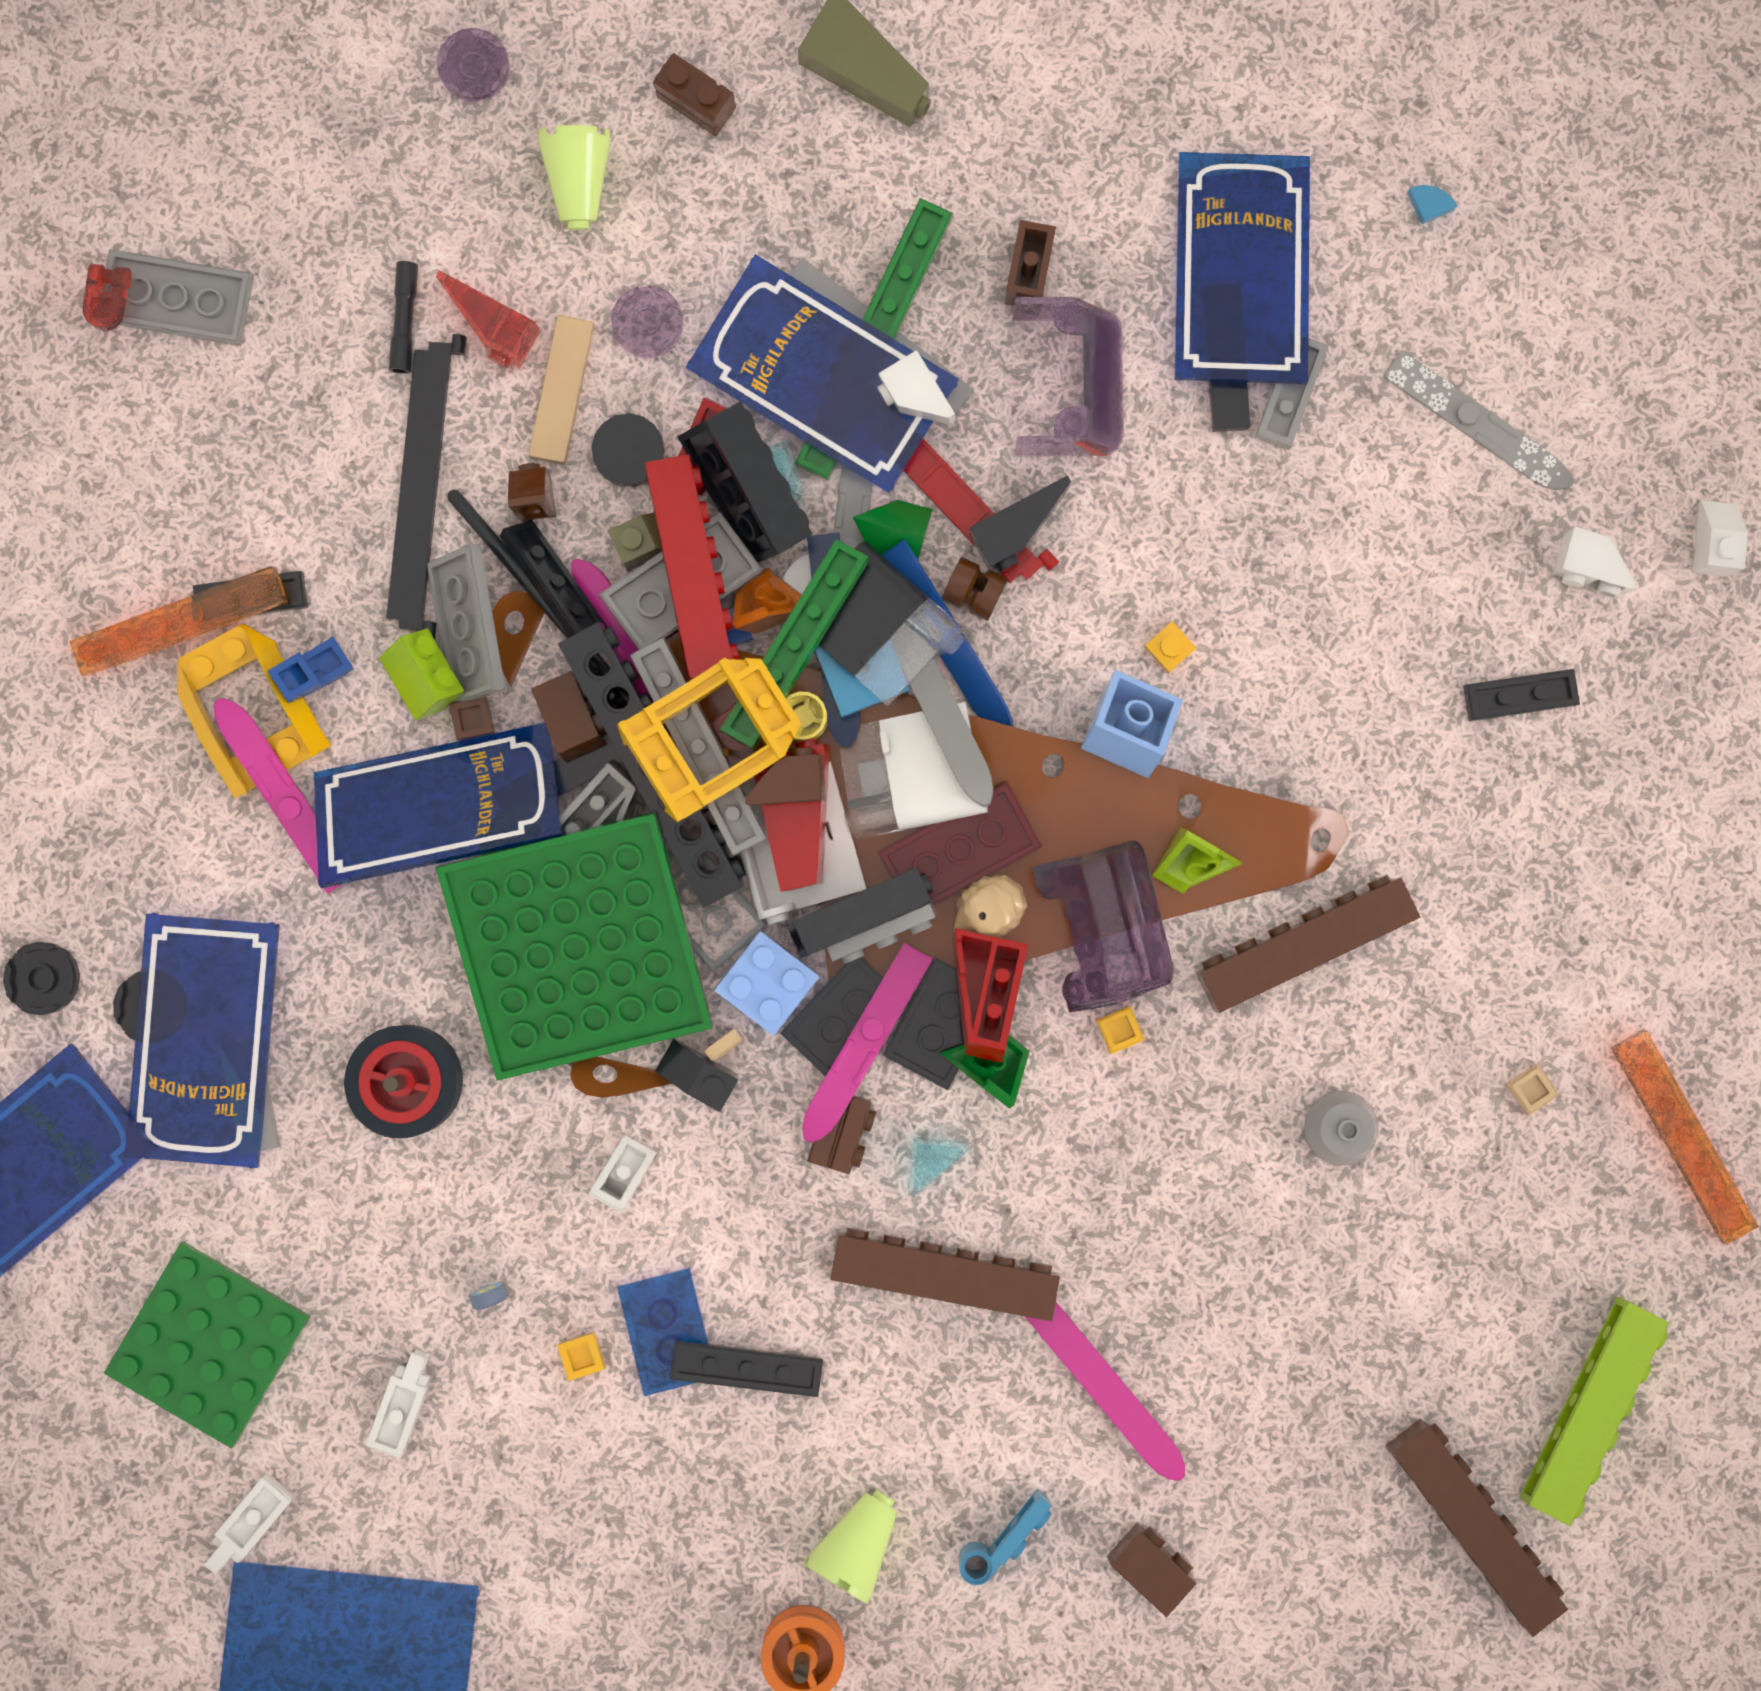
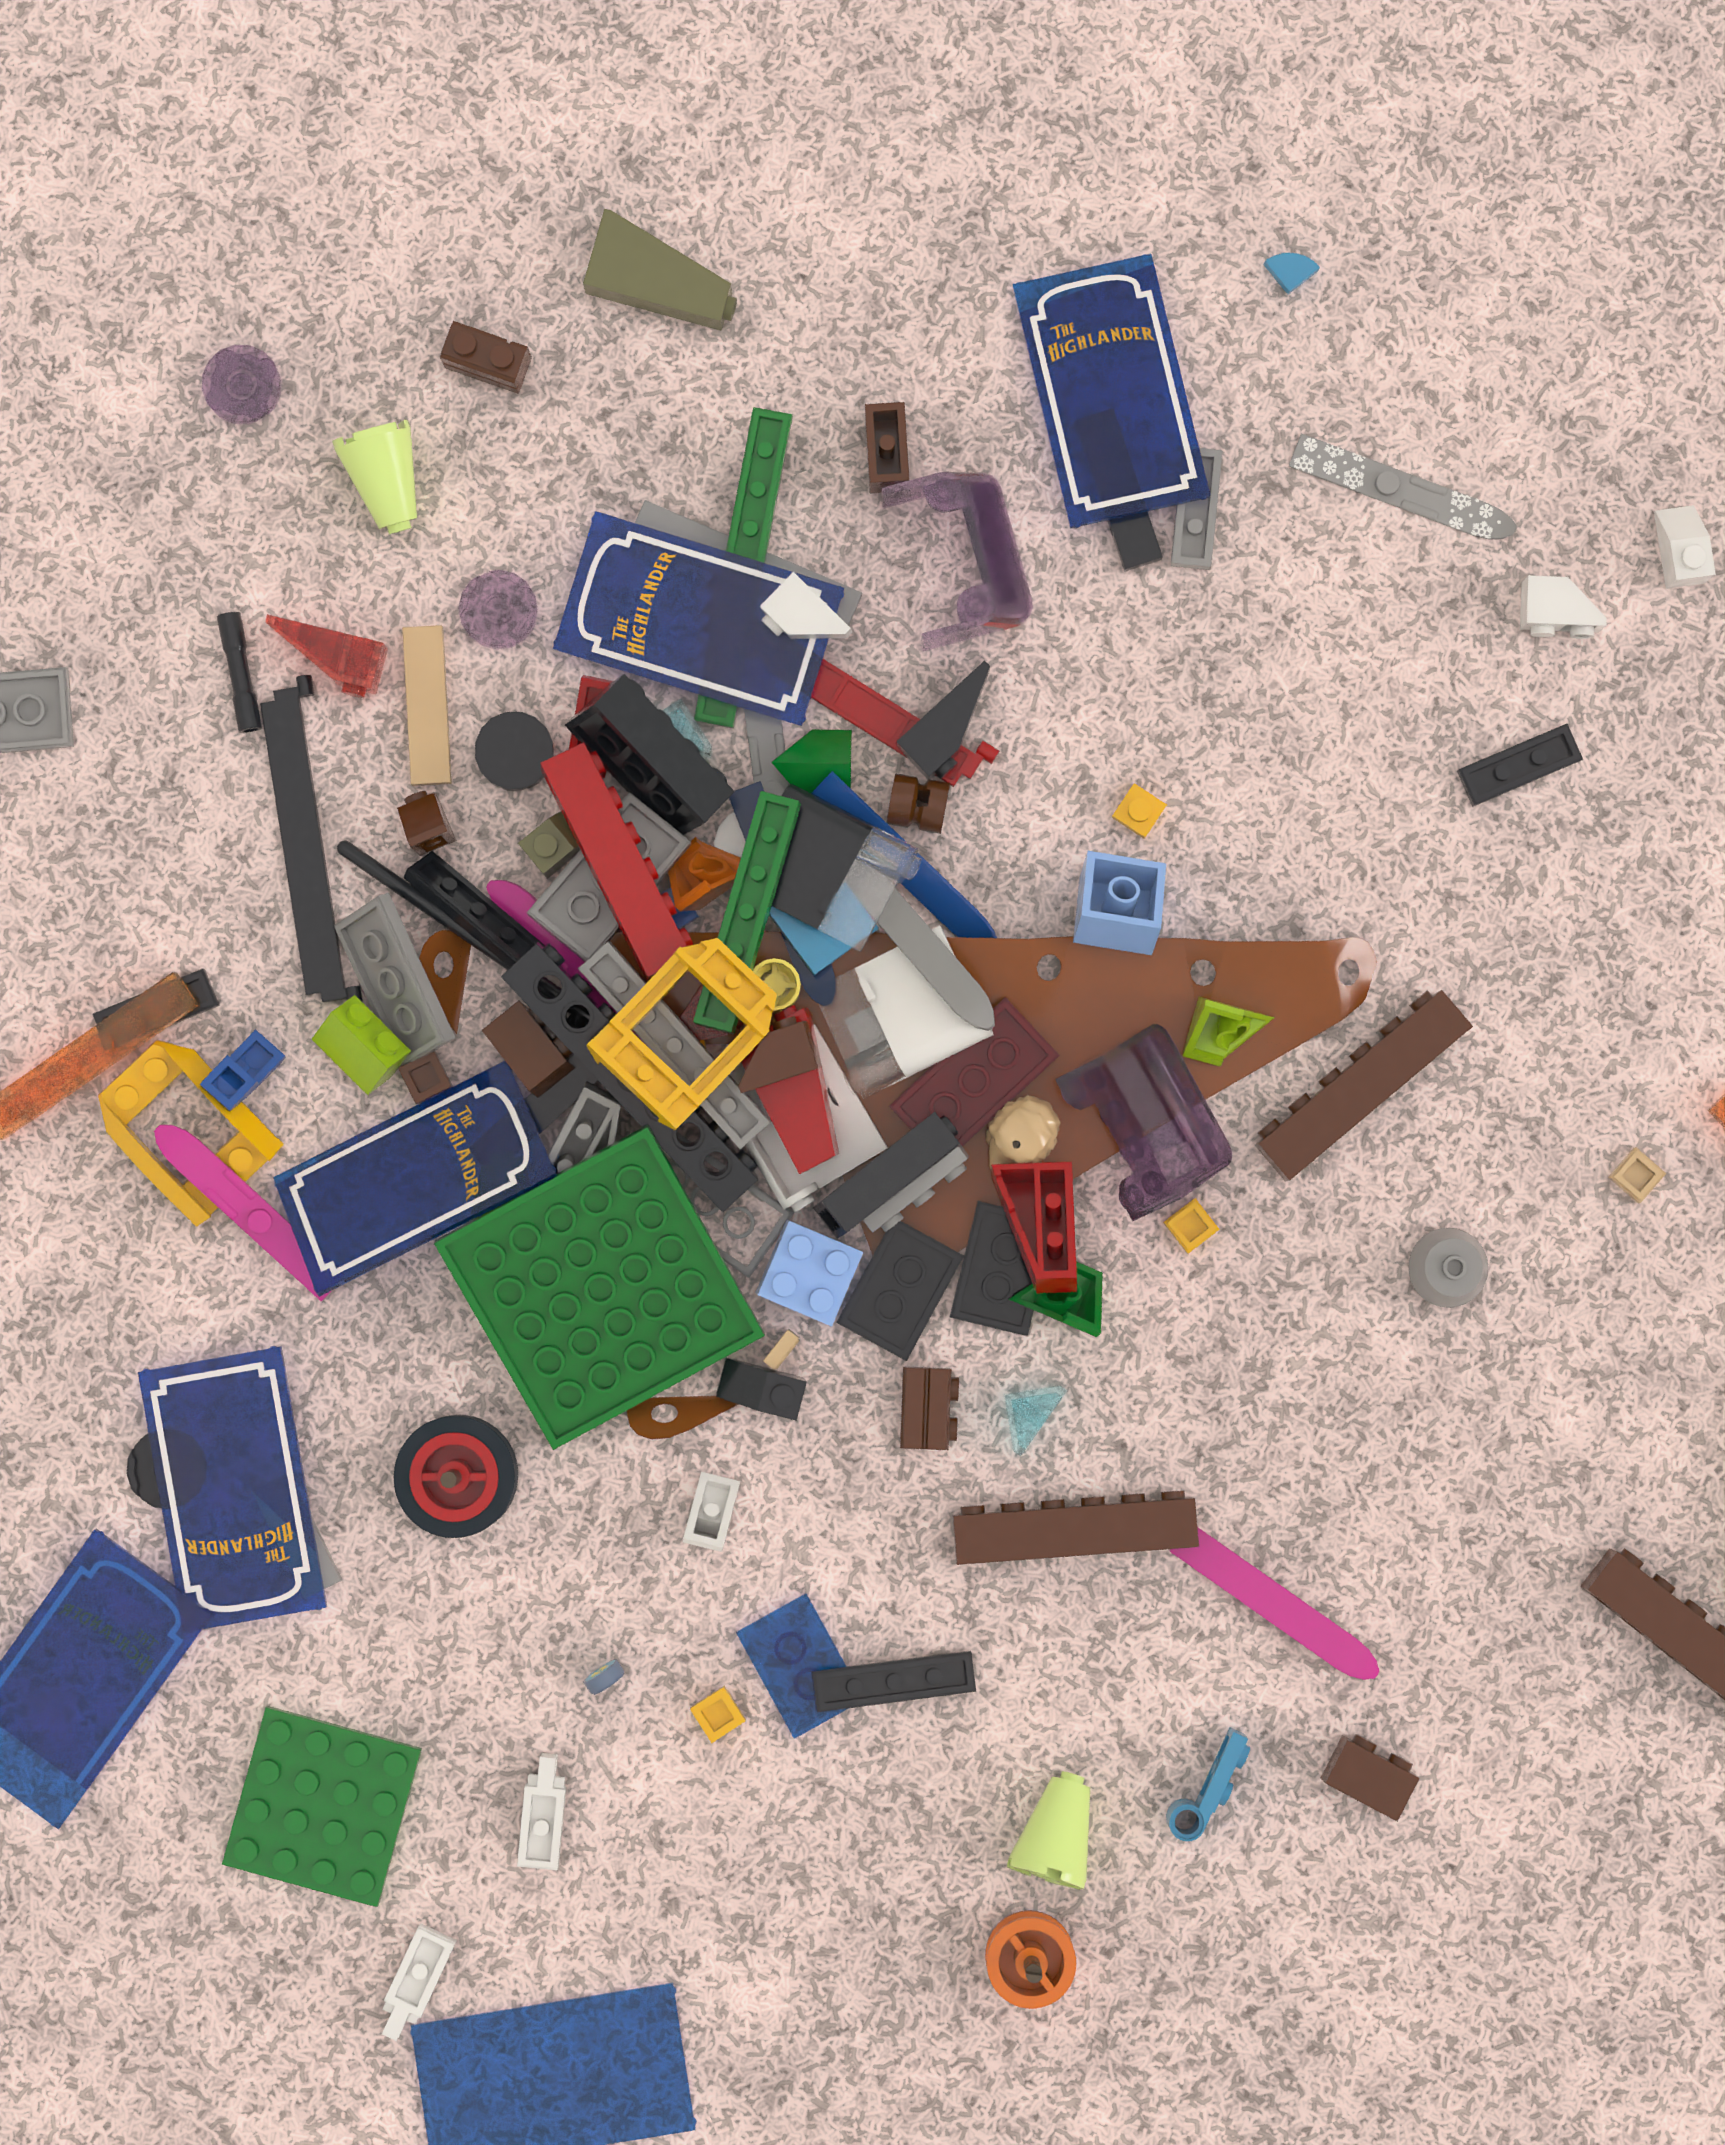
camera: 15 degrees left, 0 degrees up
(54, 979) = (59, 1467): black tile -> none
(864, 1042) = (928, 1308): dark pink piece -> none

